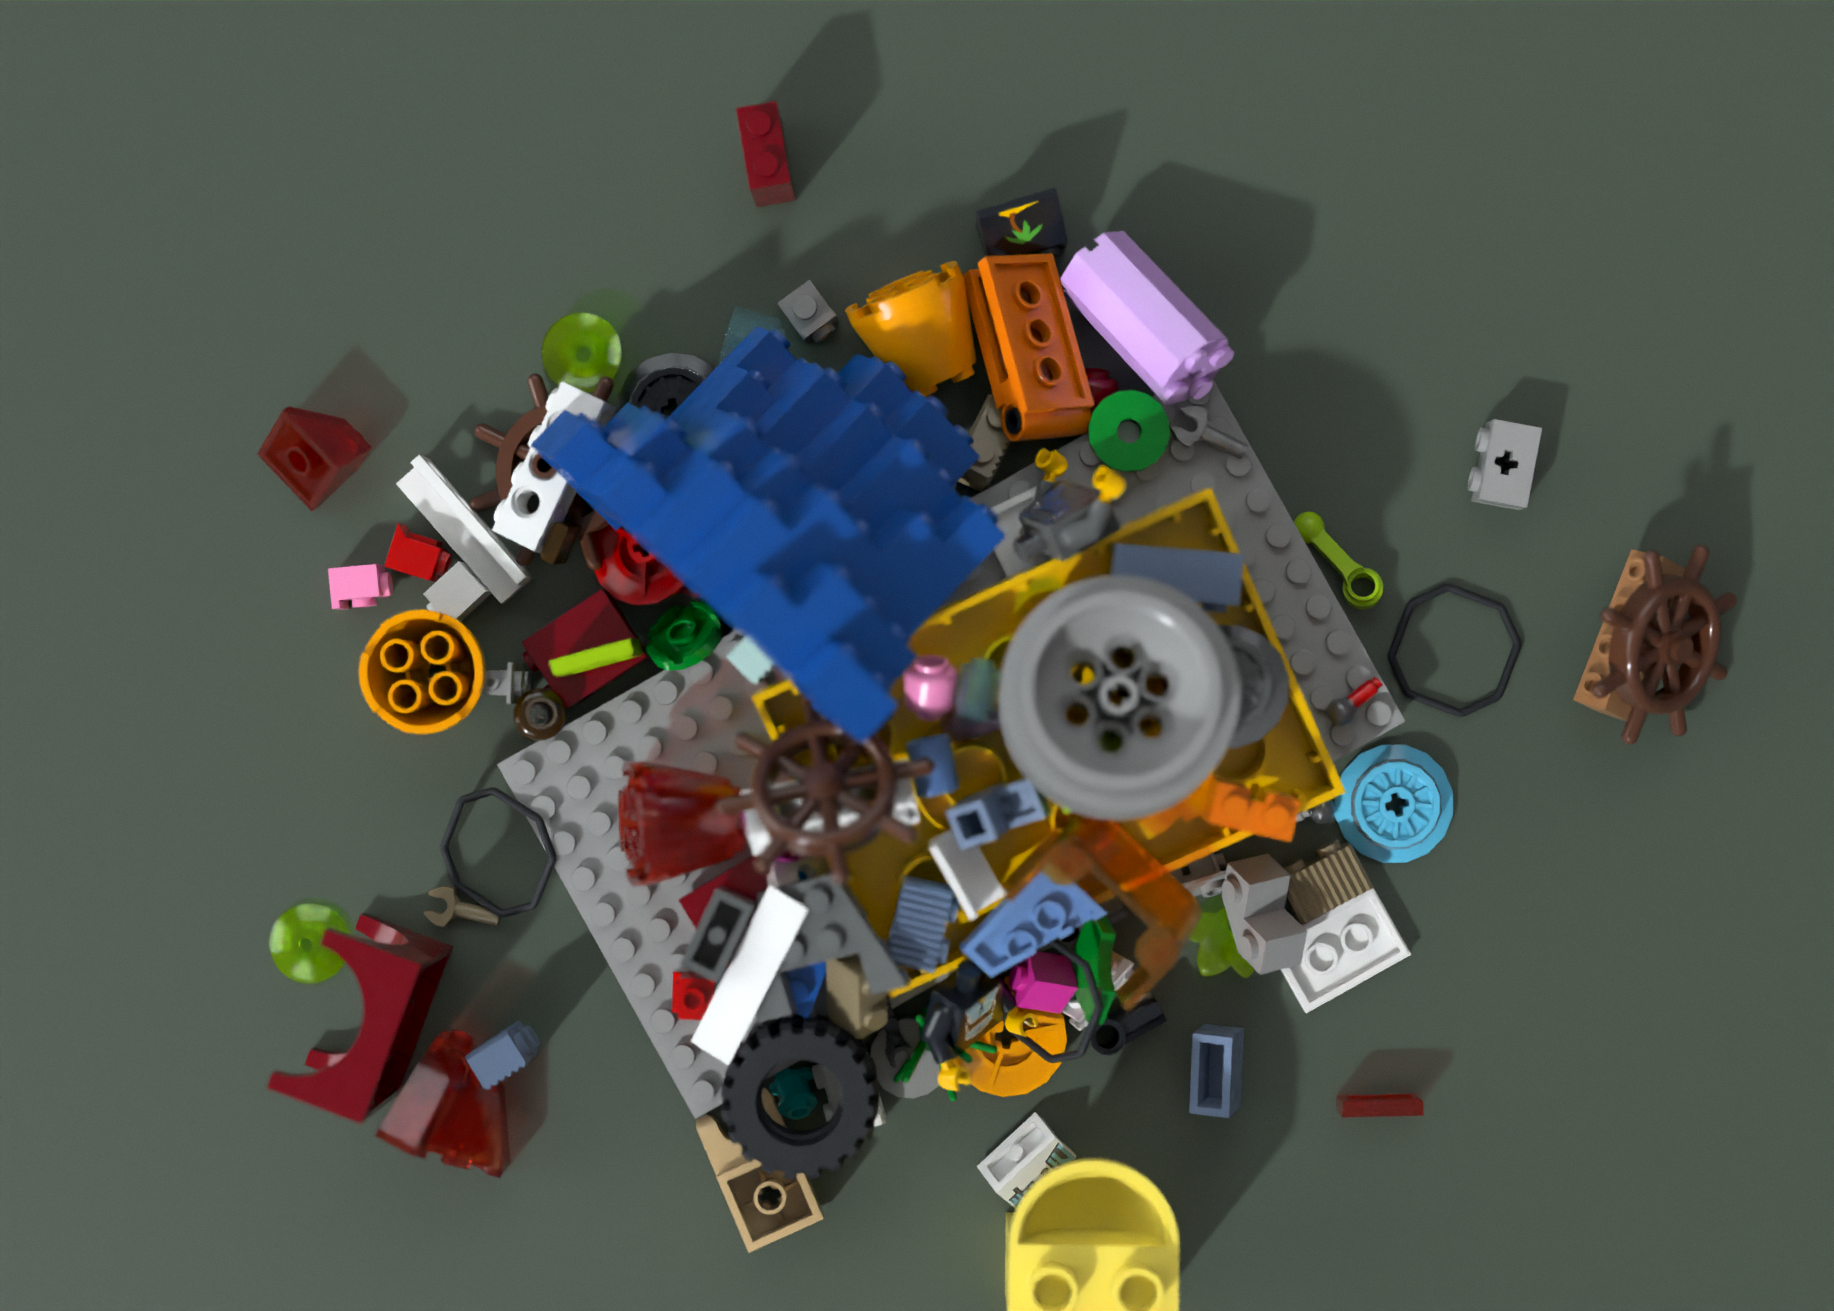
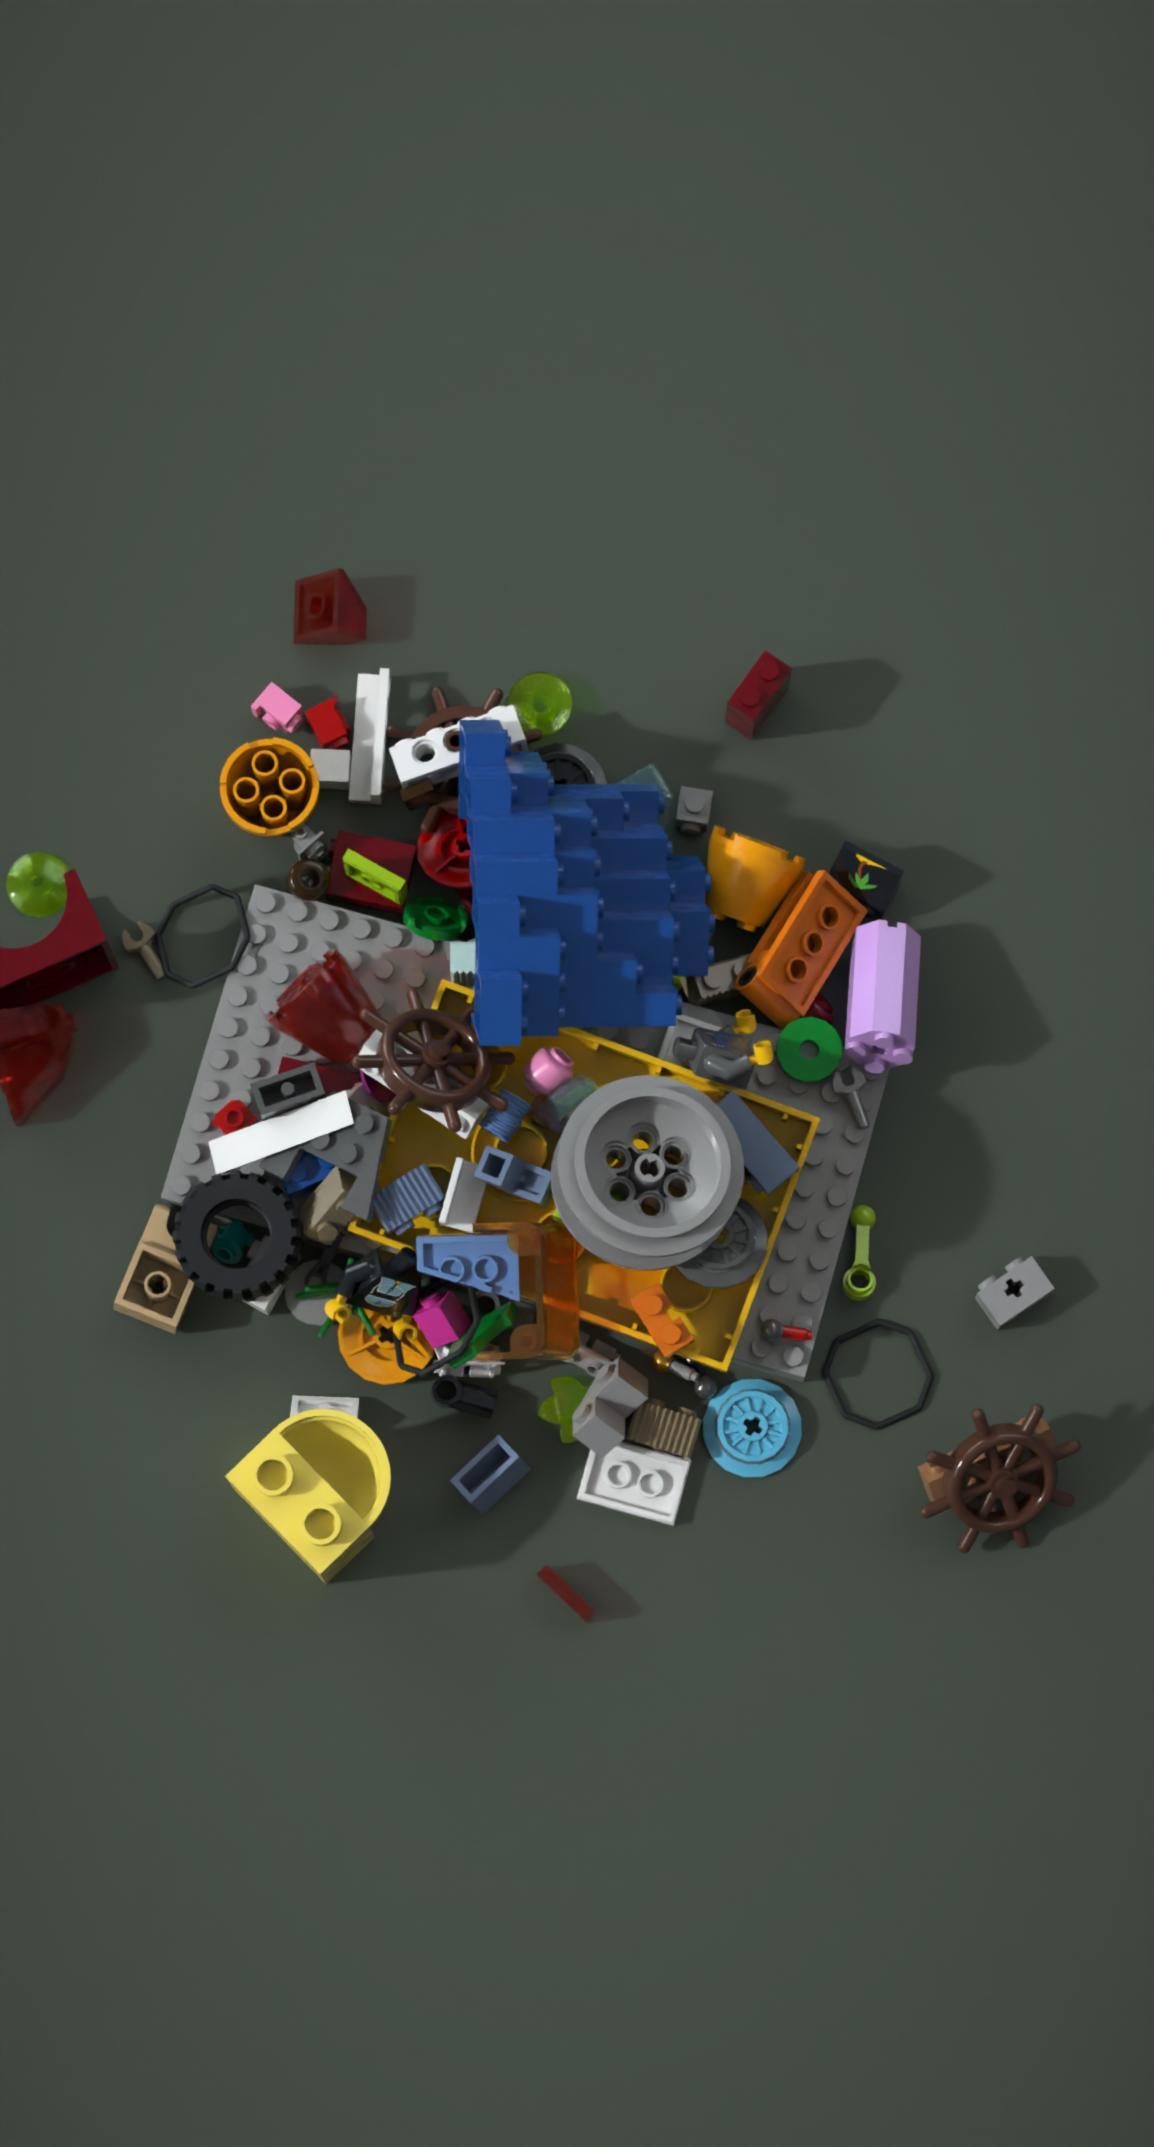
camera: 45 degrees right, 10 degrees down
(503, 1054) = (89, 1052): sand blue brick -> none

